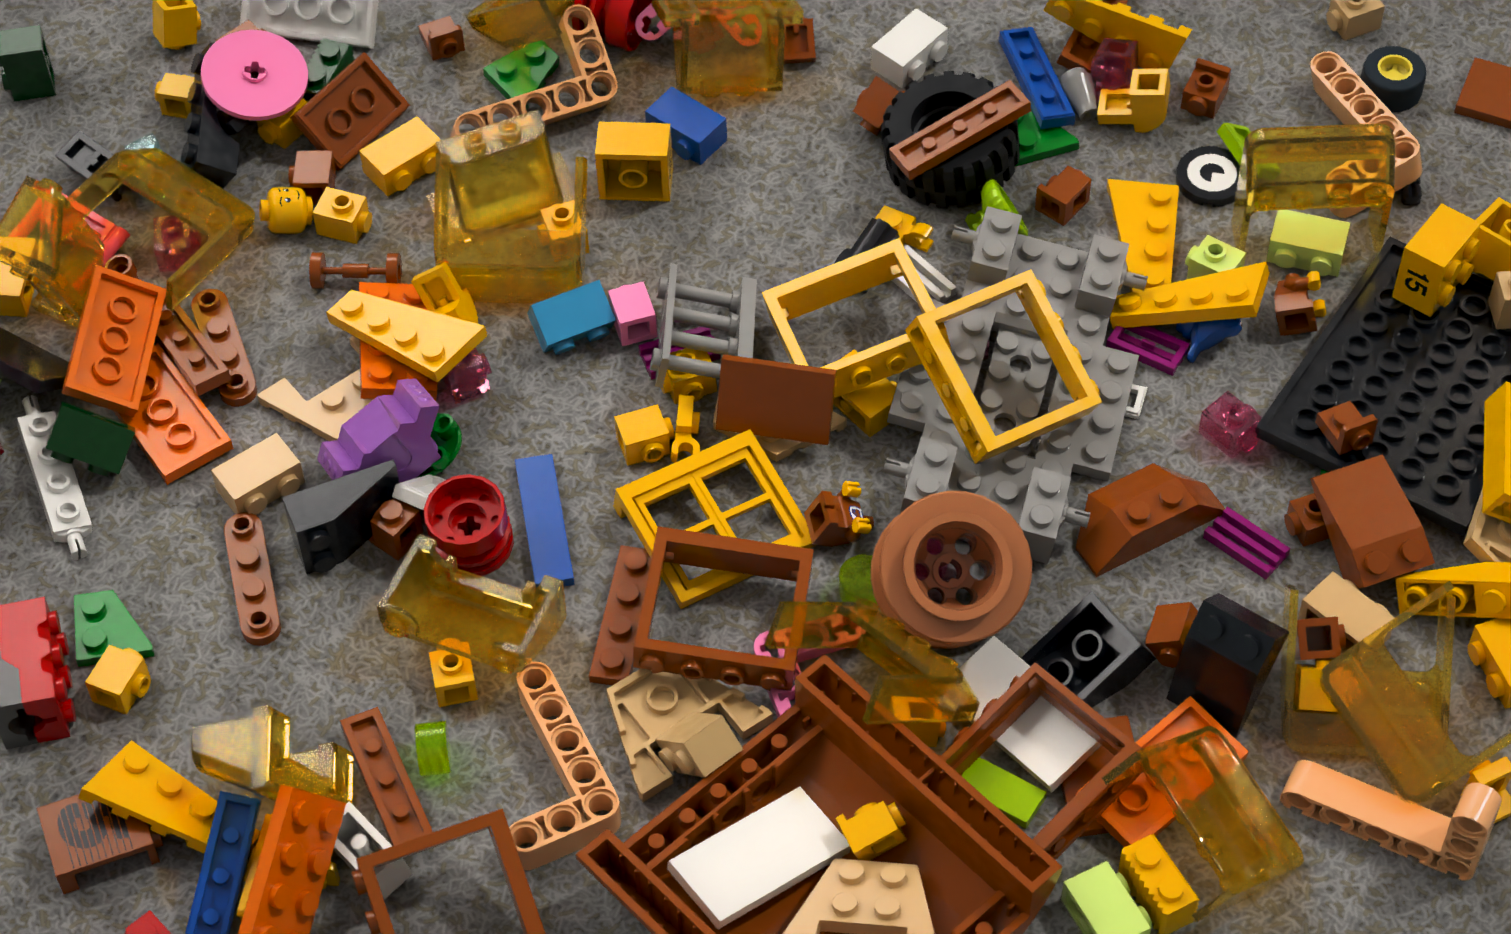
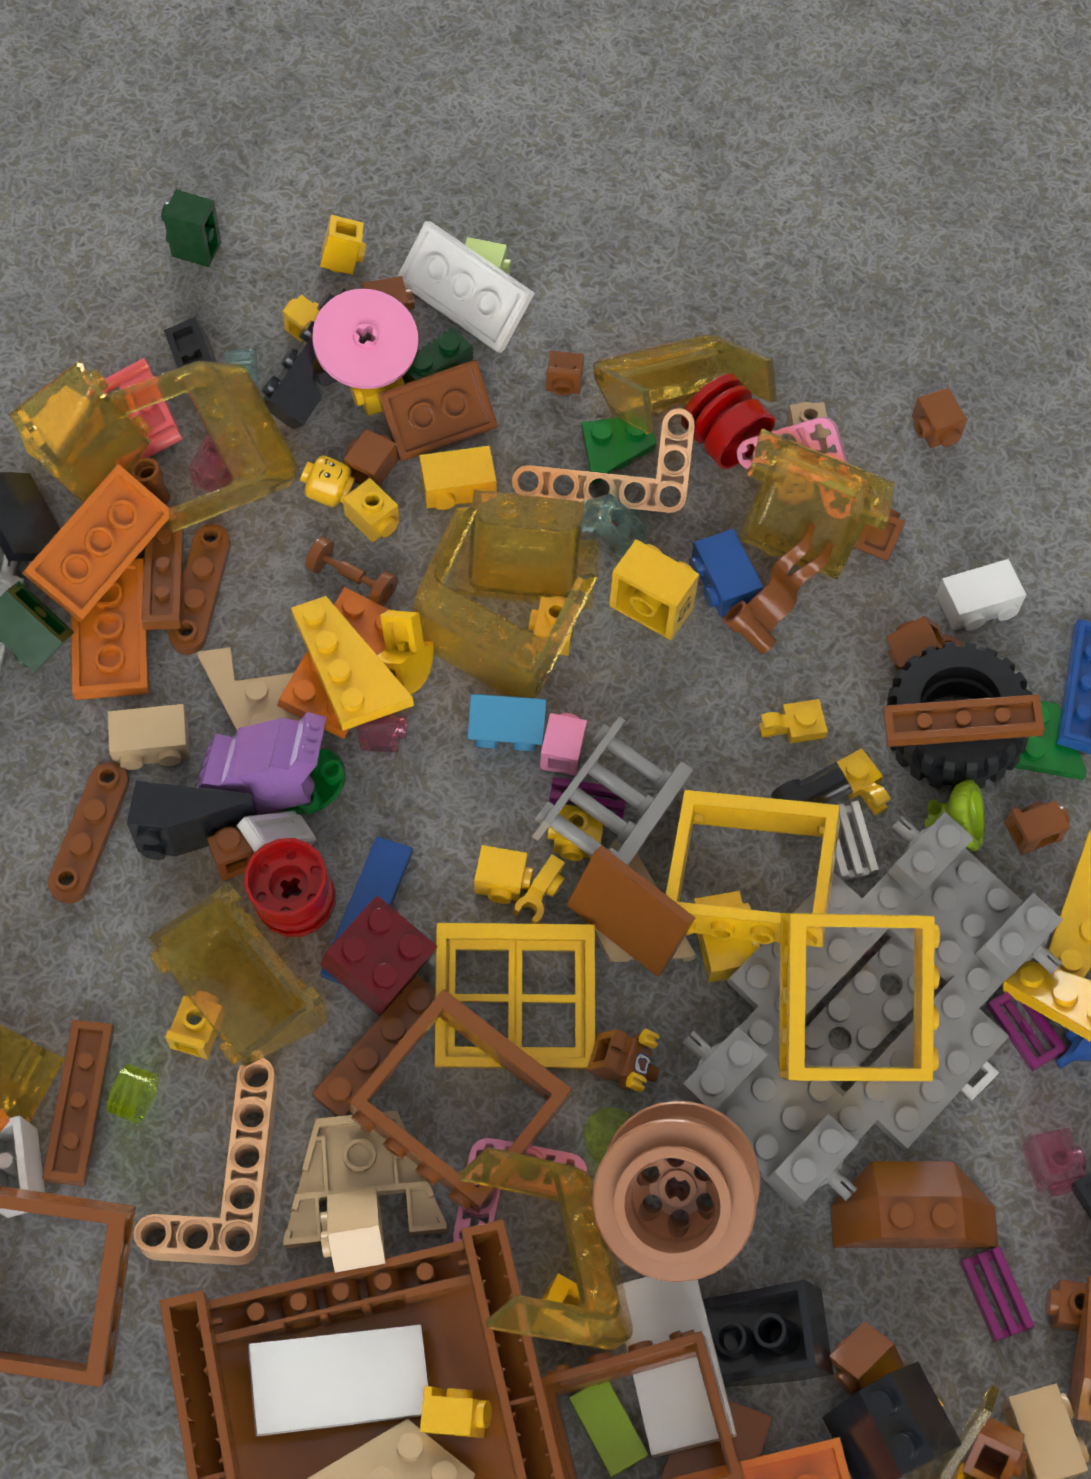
camera: 25 degrees right, 10 degrees up
(570, 129) = (612, 523): none -> clear light blue leg
(580, 539) = (378, 955): none -> dark red brick
(742, 126) = (778, 597): none -> dark orange flag
(819, 210) = (798, 720): none -> yellow plate

